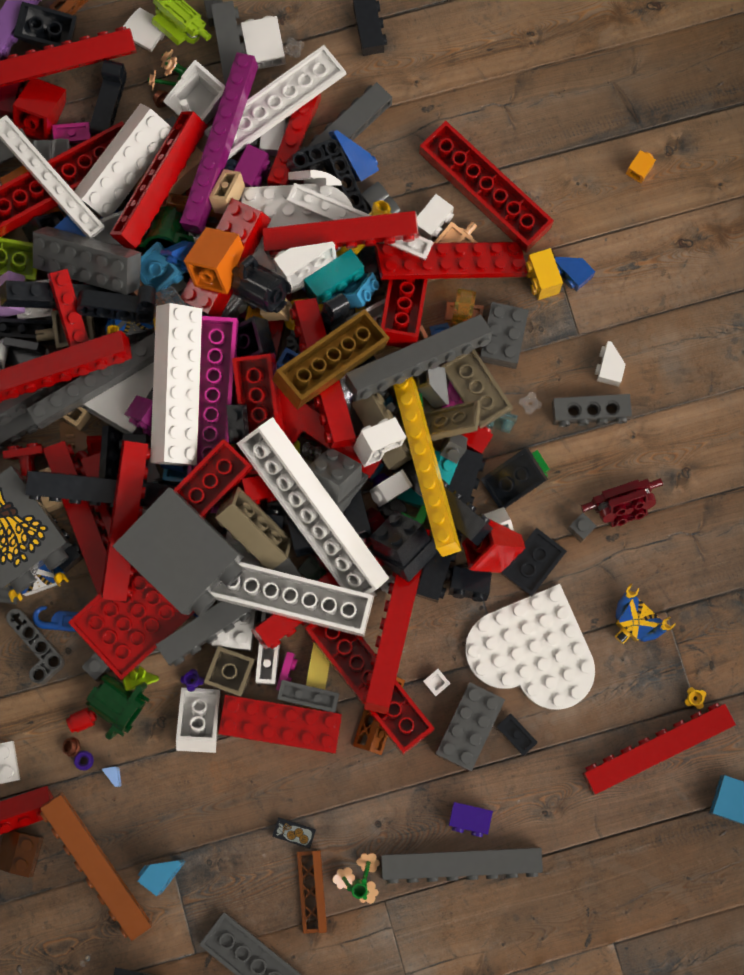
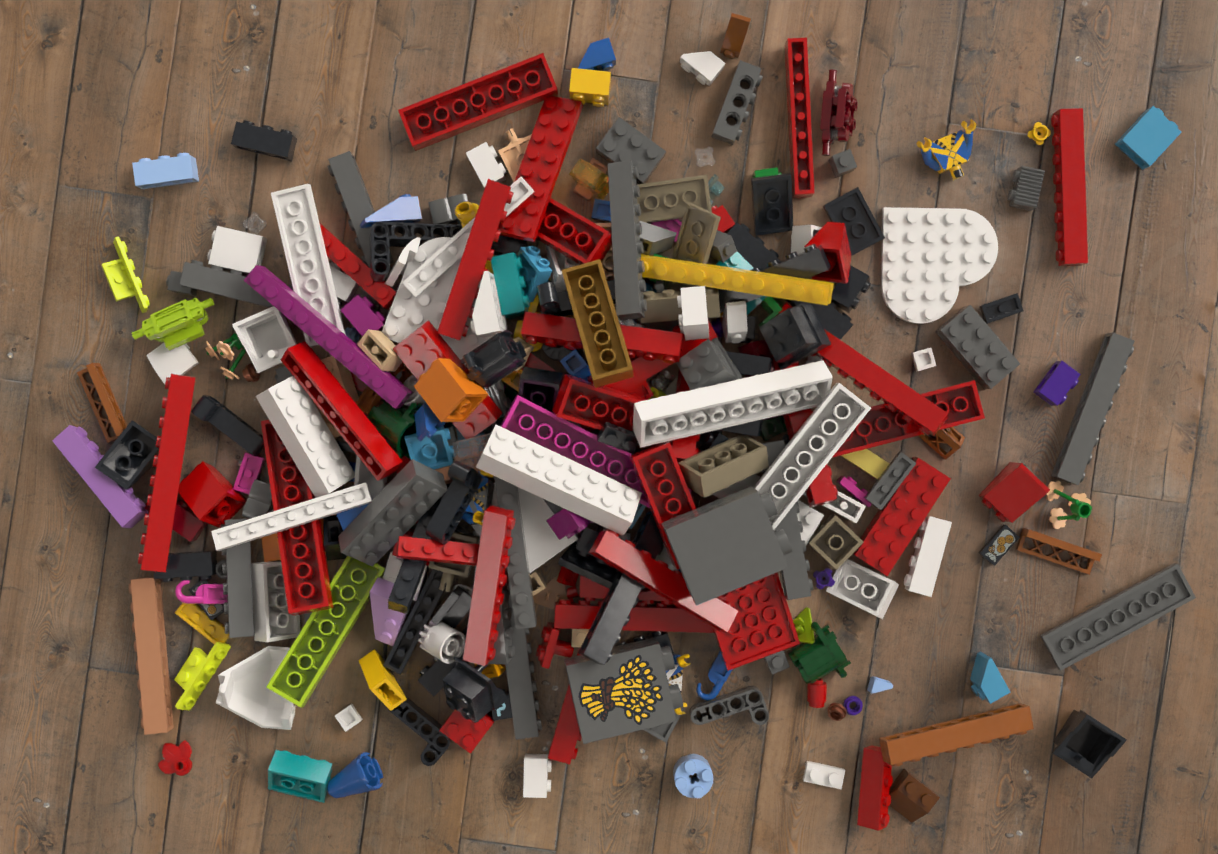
camera: 65 degrees left, 10 degrees up
(256, 767) = (927, 556): none -> white brick
(347, 820) = (1013, 492): none -> red slope
(603, 469) = (799, 117): none -> red brick
(638, 707) = (1026, 188): none -> dark grey brick
(648, 379) = (735, 35): none -> dark orange slope

